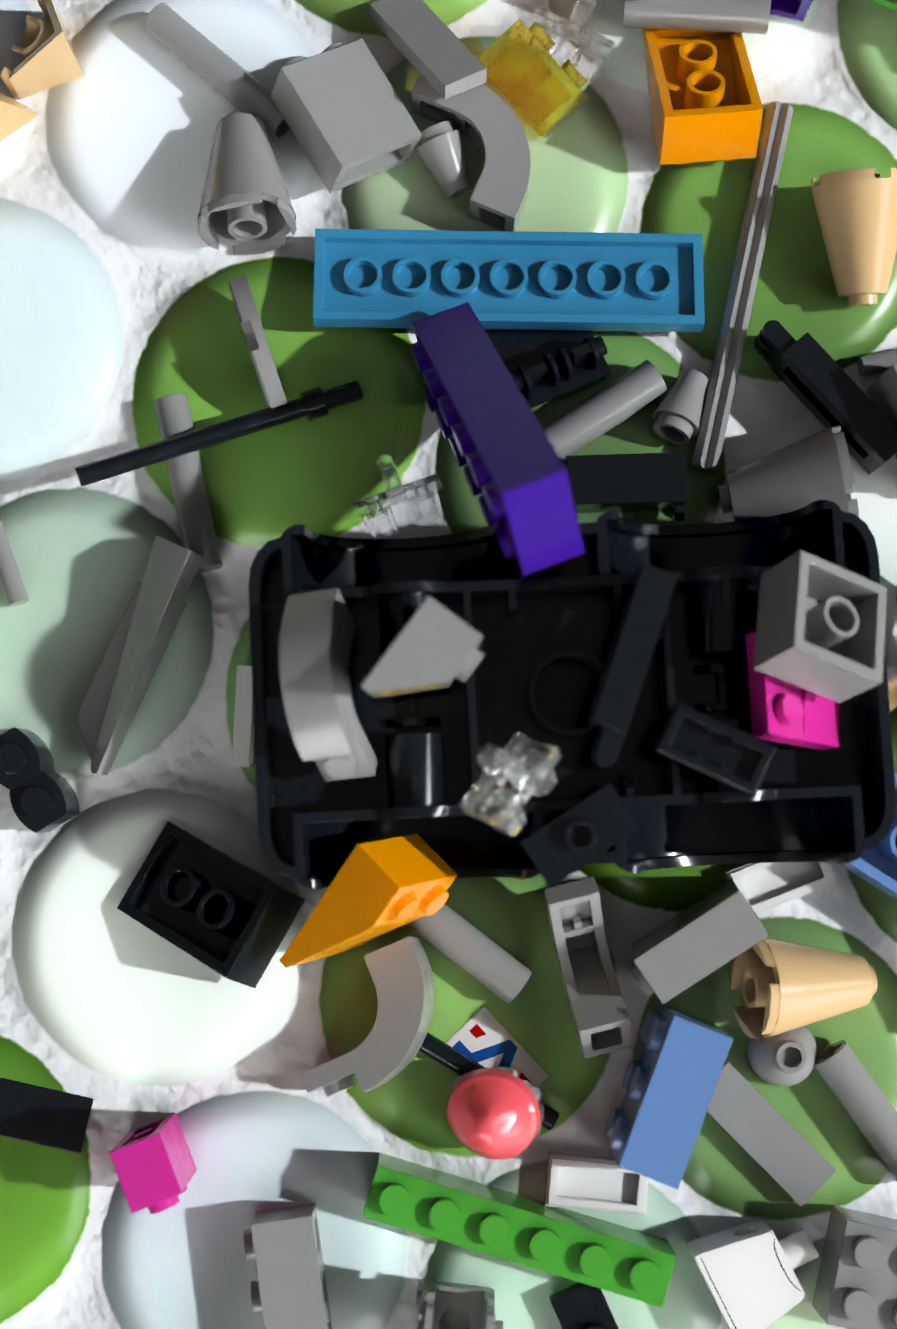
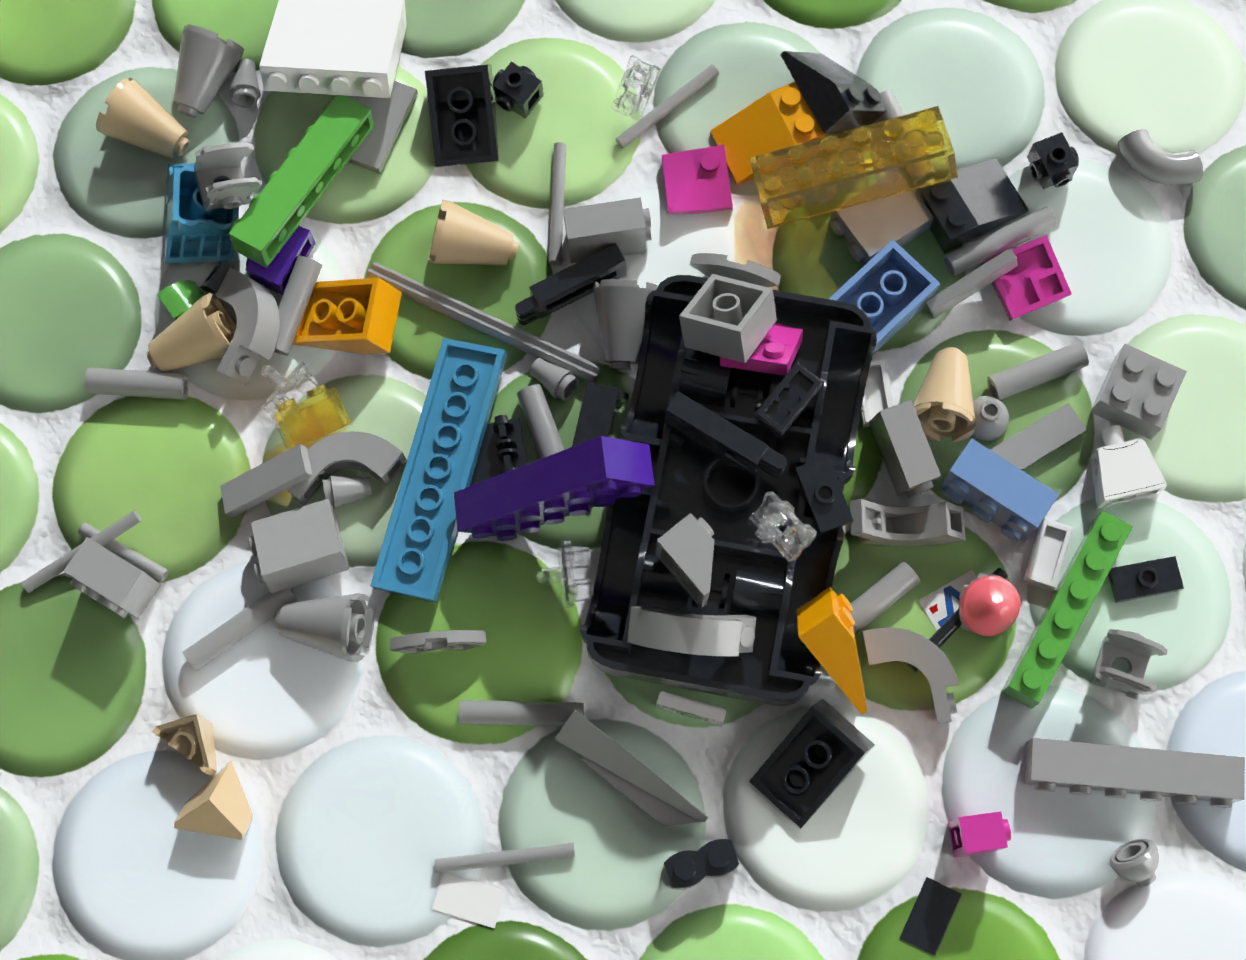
camera: 65 degrees left, 10 degrees down
(311, 404) = (489, 618): black bar -> none

